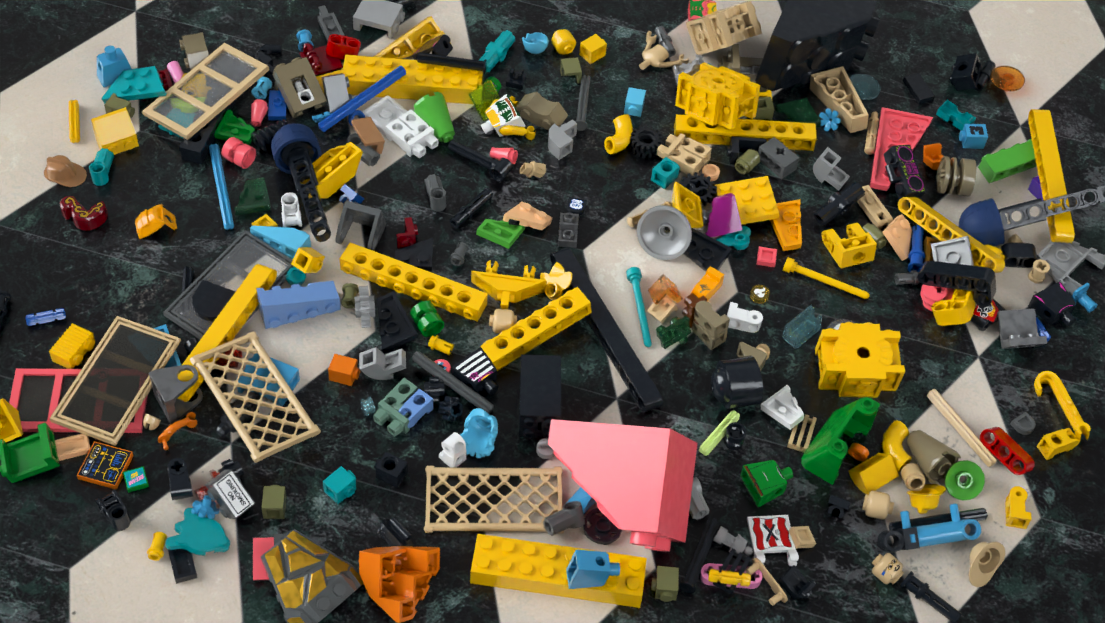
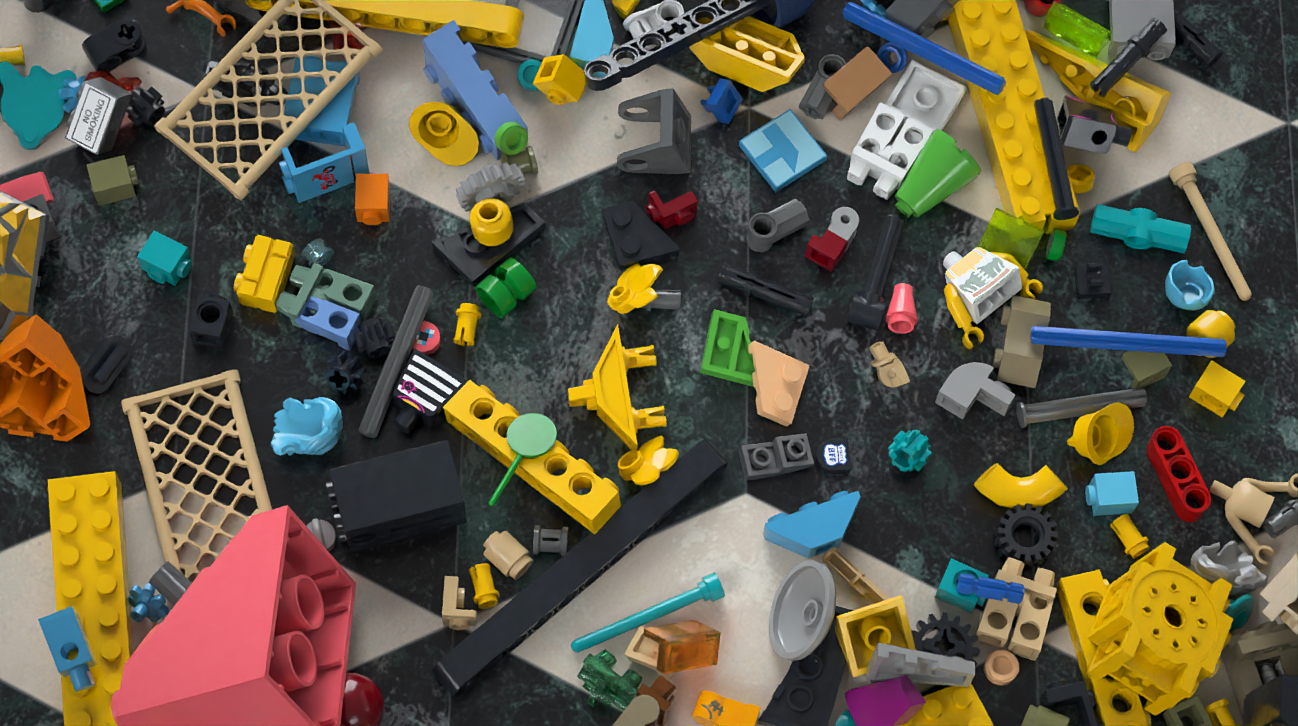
camera: 75 degrees right, 15 degrees up
(314, 370) = (328, 172): none -> dark azure panel
(317, 323) = (444, 133): none -> yellow piece
(338, 288) = (511, 138): none -> bright green tile
(370, 434) = (265, 273): none -> yellow brick
(376, 40) = (1076, 29): none -> clear neon green bracket
(380, 365) = (395, 246): light grey brick -> none
(388, 309) = (491, 222): none -> yellow head
(390, 180) = (782, 150): none -> tile
(401, 17) = (1137, 47): none -> black pin
(413, 281) = (566, 353): yellow brick -> none
(449, 258) = (634, 288): none -> yellow plate
(453, 170) = (831, 247): none -> leg
(453, 448) = (262, 397): white leg -> none
(474, 28) = (1184, 177): none -> tan piece
(502, 320) = (539, 398): tan head -> none
(530, 320) = (529, 437): none -> piece
(560, 67) = (1128, 341): none -> blue axle
(564, 538) = (147, 604): none -> dark azure plant
(584, 337) = (557, 546): none -> dark grey bush
(586, 171) = (909, 450): none -> teal gear
(587, 359) = (507, 554): none -> tan brick
(601, 99) = (1103, 433): none -> yellow piece
(603, 375) = (484, 588): none -> yellow pin
(608, 391) = (453, 599): none -> tan bracket
(614, 221) = (814, 526): none -> dark azure slope
(632, 75) = (1180, 459): none -> red beam
(659, 103) = (1130, 536): none -> yellow pin
(675, 155) = (990, 588): none -> blue axle
(709, 192) = (919, 666): none -> light grey wing

